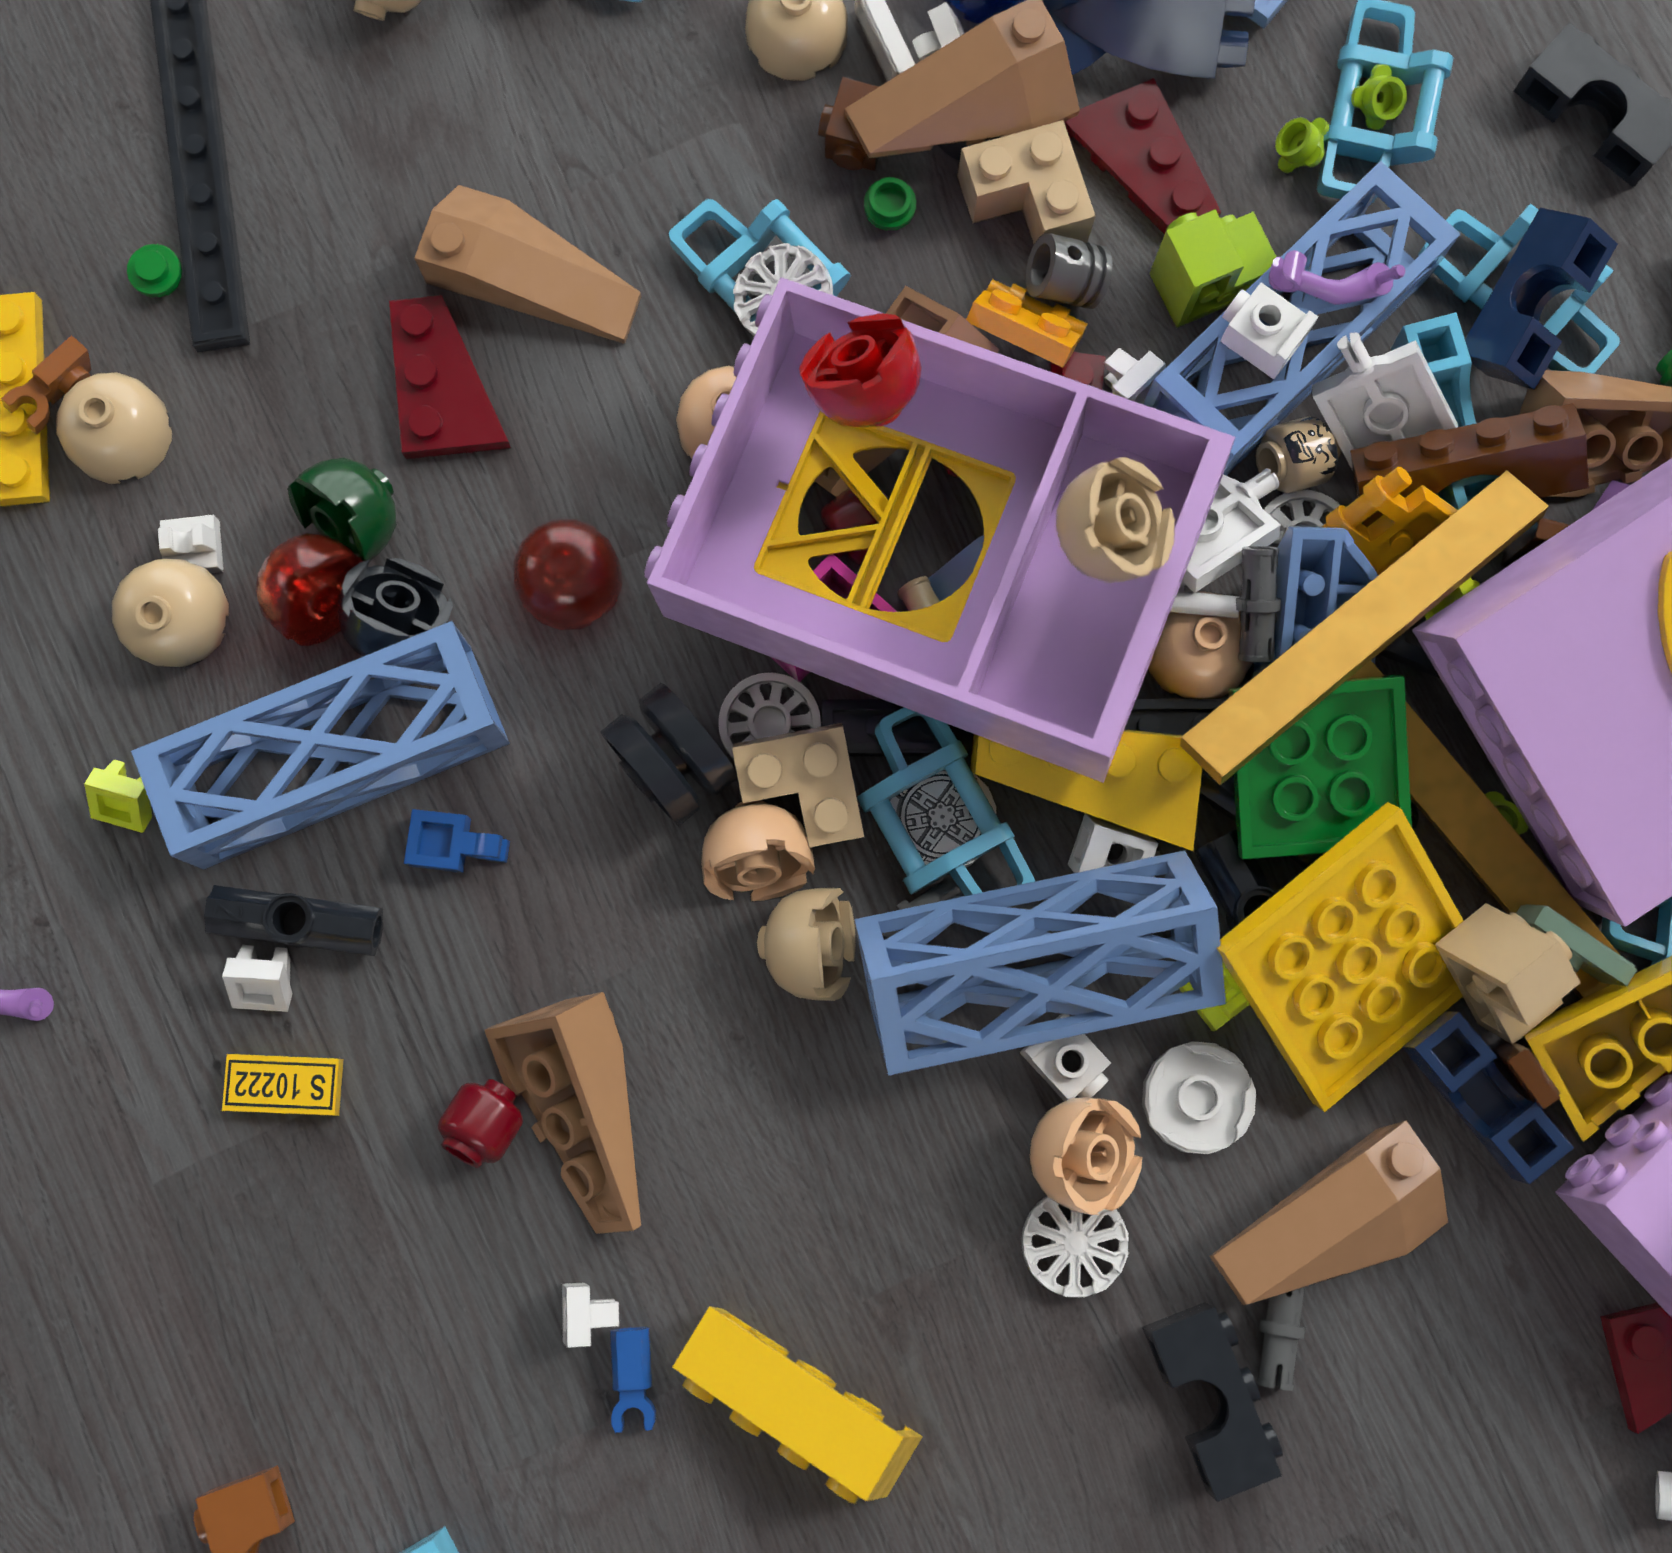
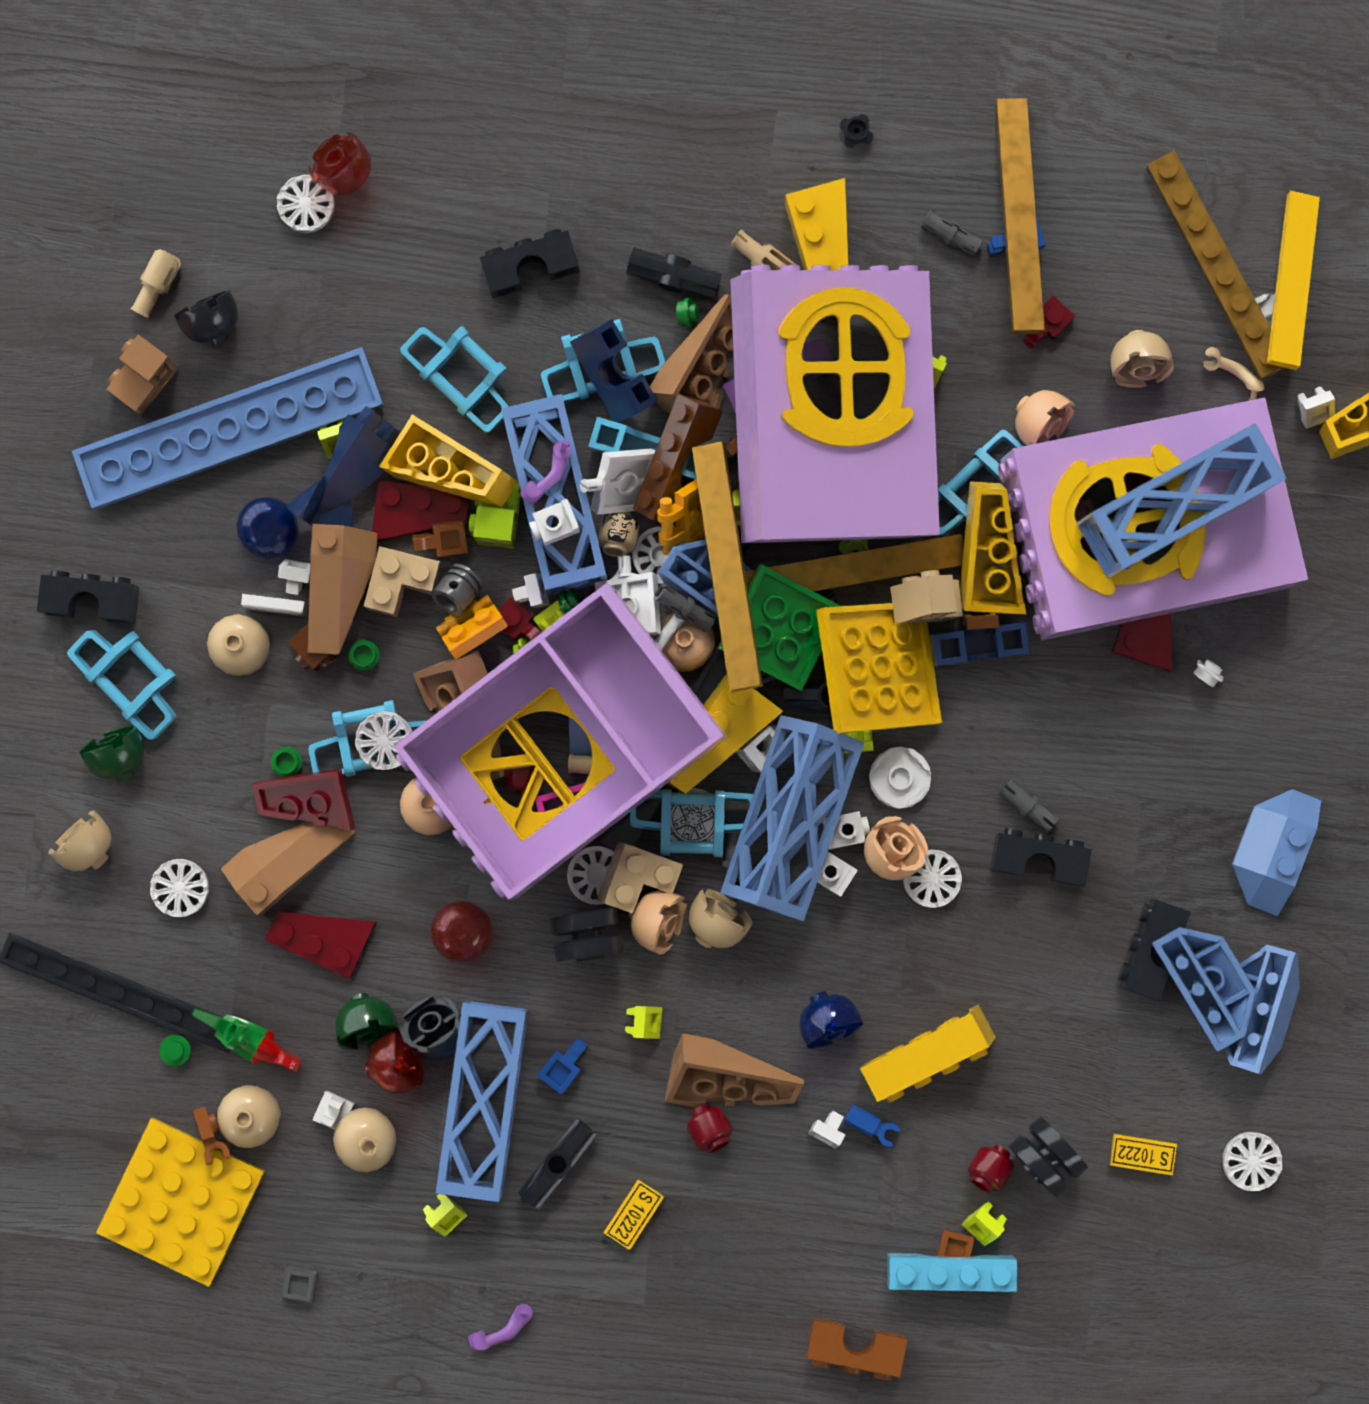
camera: 55 degrees left, 5 degrees up
(225, 361) = (249, 1040): none -> green animal
(258, 983) = (577, 1198): white tile -> none
(397, 143) = (179, 888): none -> white wheel
(590, 927) = (646, 1022): none -> neon yellow tile
(633, 237) = (306, 797): none -> dark red wing
(668, 186) = (286, 762): none -> green plate
(758, 1208) = (827, 1019): none -> clear blue cylinder
(865, 373) = (471, 739): red cylinder -> none
(995, 1099) = (842, 878): none -> white brick
(1115, 522) = (618, 668): tan cylinder -> none
(1131, 217) = (446, 538): none -> dark orange plate
(1241, 142) = (438, 462): none -> yellow wedge
(1301, 143) = (459, 428): lime plate -> none
(1349, 1216) = (996, 743): medium nougat wedge -> none
(1391, 97) = (463, 369): lime plate -> none
(1587, 951) = (935, 559): sand green plate -> none

